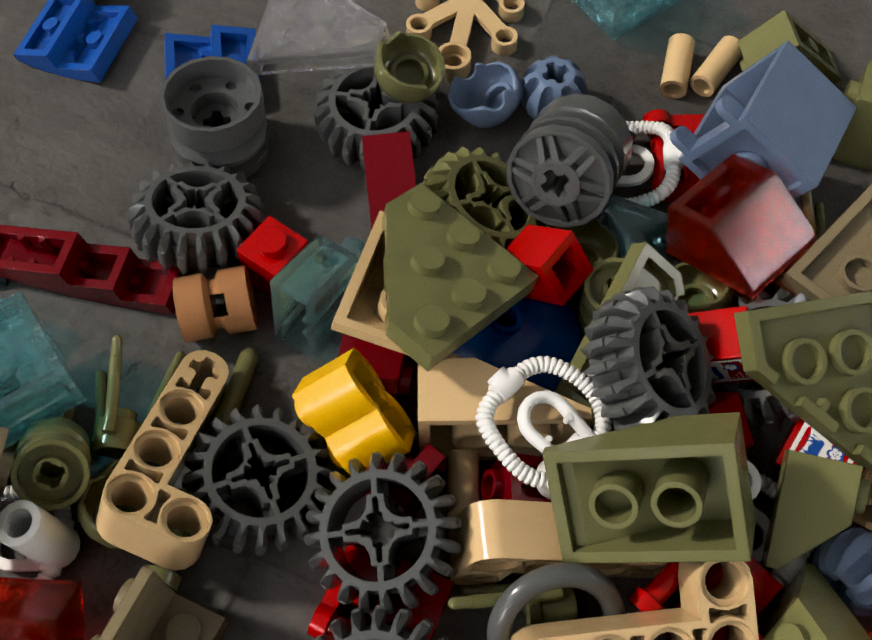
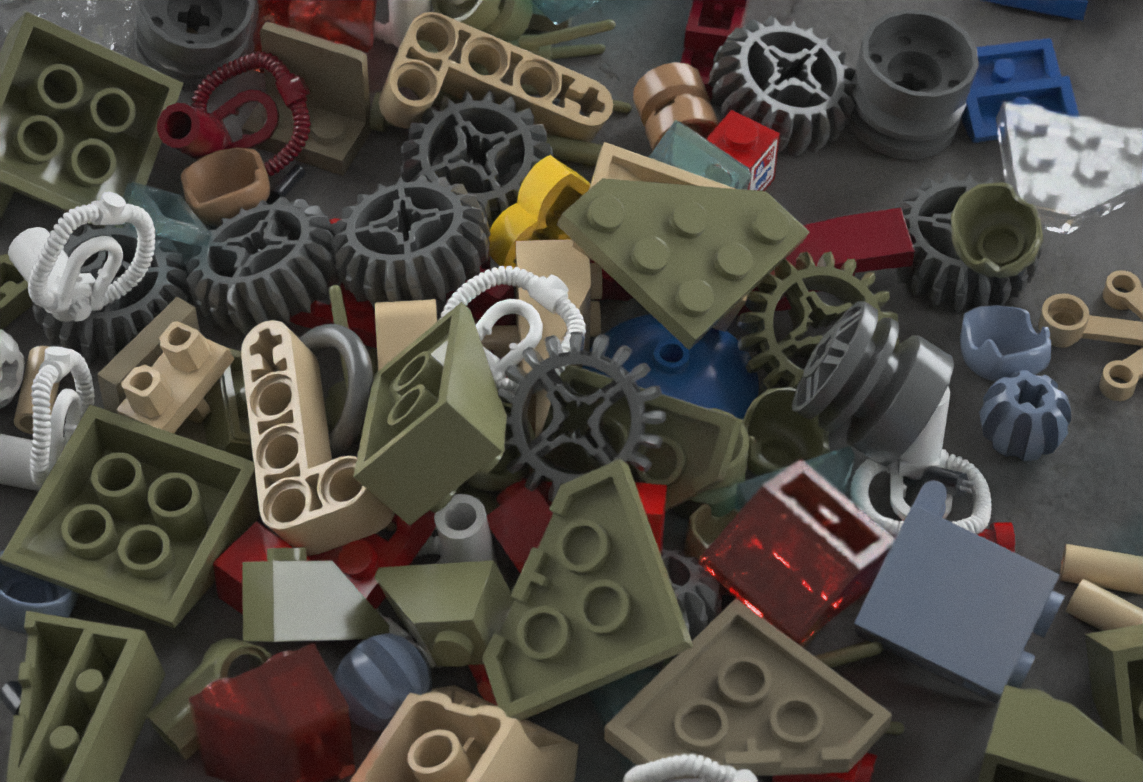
camera: 85 degrees right, 10 degrees down
(556, 260) = (728, 367): red brick -> none

